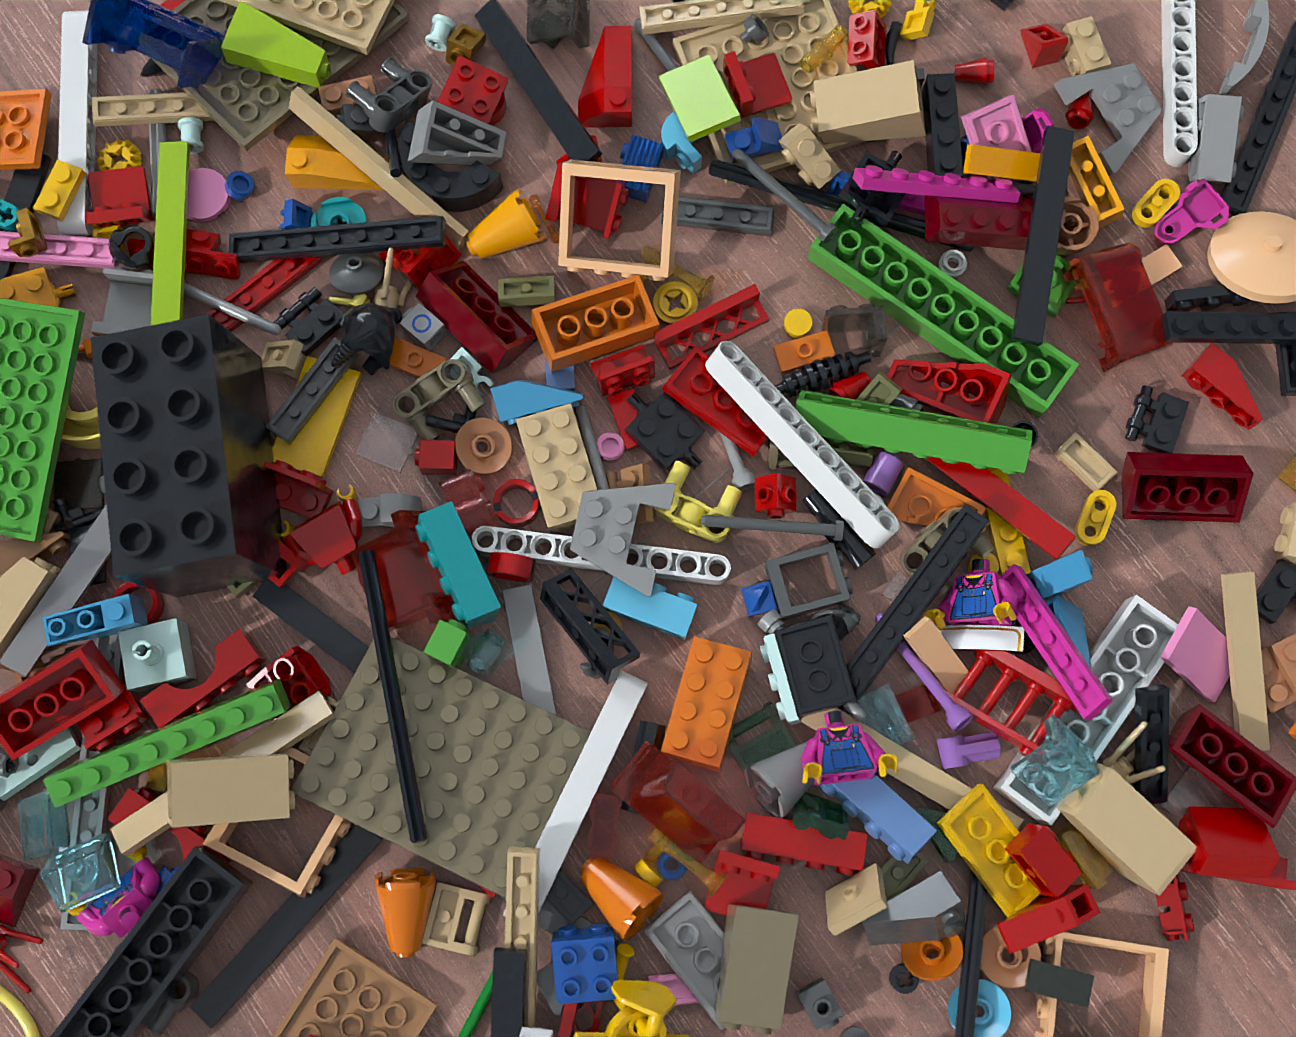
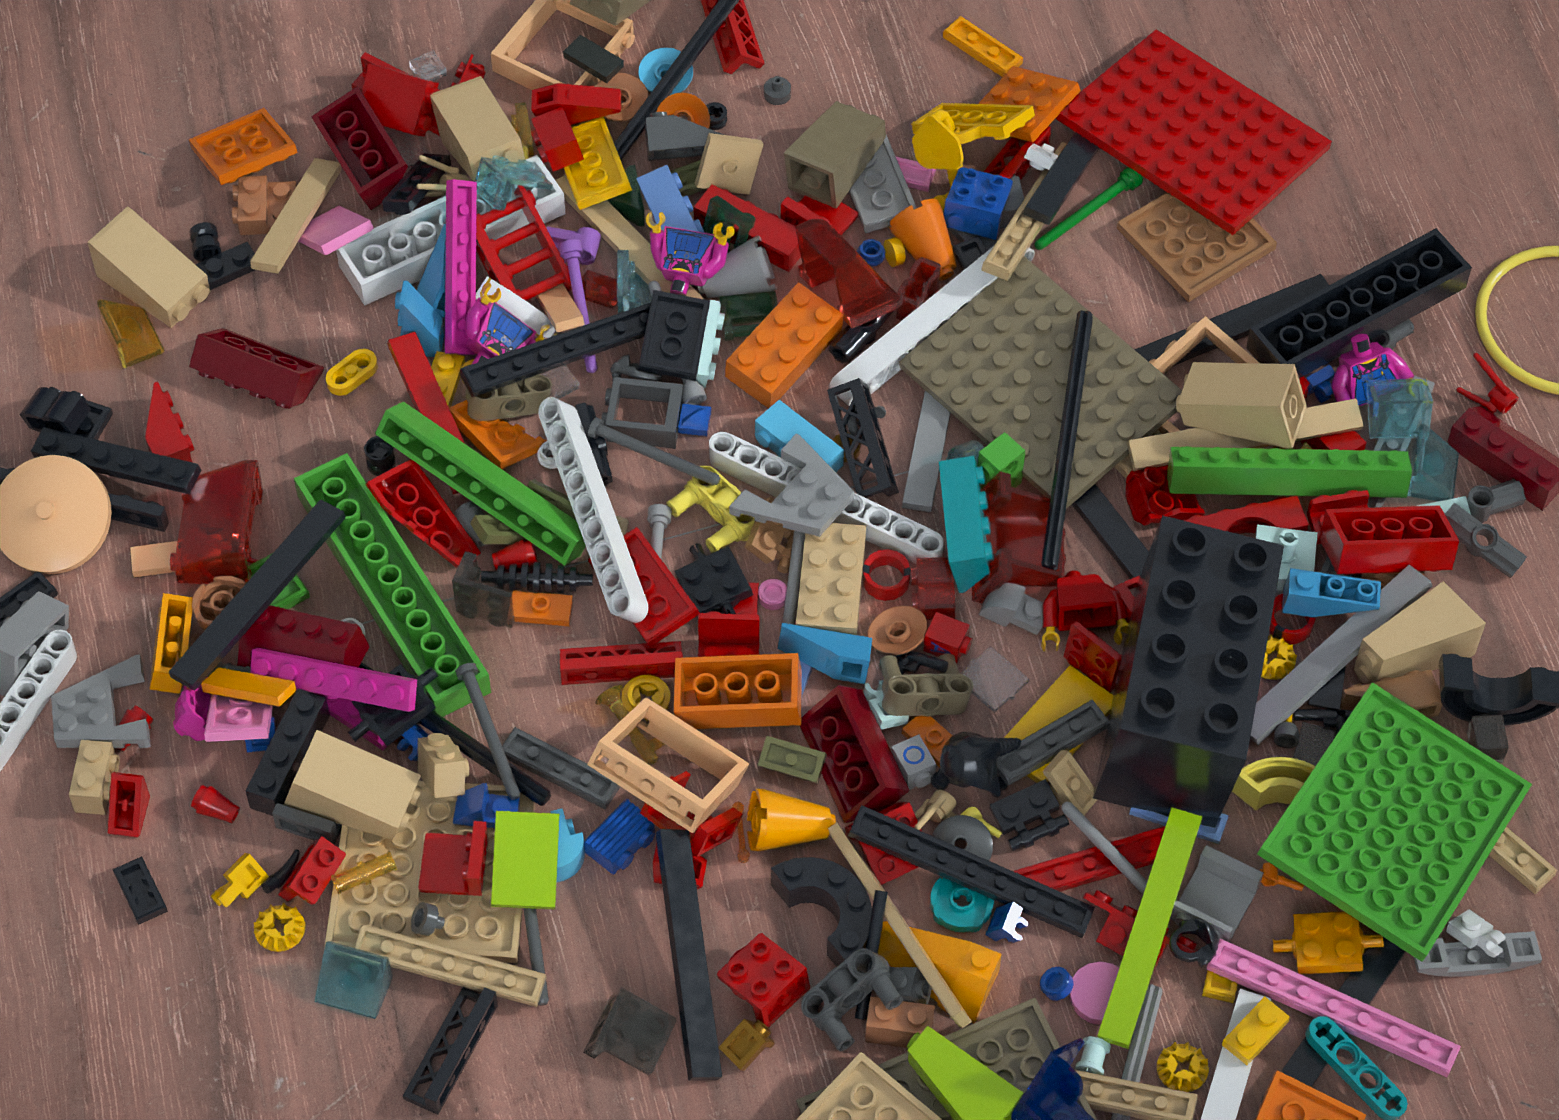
camera: 160 degrees left, 20 degrees down
(31, 235) = (1300, 988): pearl gold bracket -> none
(119, 197) = (1195, 1006): red bracket -> none
(405, 907) = (1117, 296): orange cone -> none
(440, 32) = (769, 1067): light aqua bush -> none
(446, 917) = (1088, 277): tan plate -> none
(453, 138) = (806, 914): light grey wedge -> none
(511, 567) = (920, 504): red piece -> none
(608, 85) = (610, 937): red wedge -> none
(664, 844) = (841, 218): clear yellow piece -> none
(775, 495) = (636, 487): red brick -> none
(797, 323) = (533, 636): yellow tile -> none
(820, 1004) = (793, 118): dark grey brick -> none
(883, 472) = (528, 468): medium lavender brick -> none
(1085, 462) = (330, 422): tan tile -> none
(1154, 204) = (117, 611): yellow plate -> none
(1164, 424) = (237, 426): black plate -> none
(1194, 210) = (86, 583): dark pink piece -> none
(1223, 913) = (428, 66): none -> clear plate

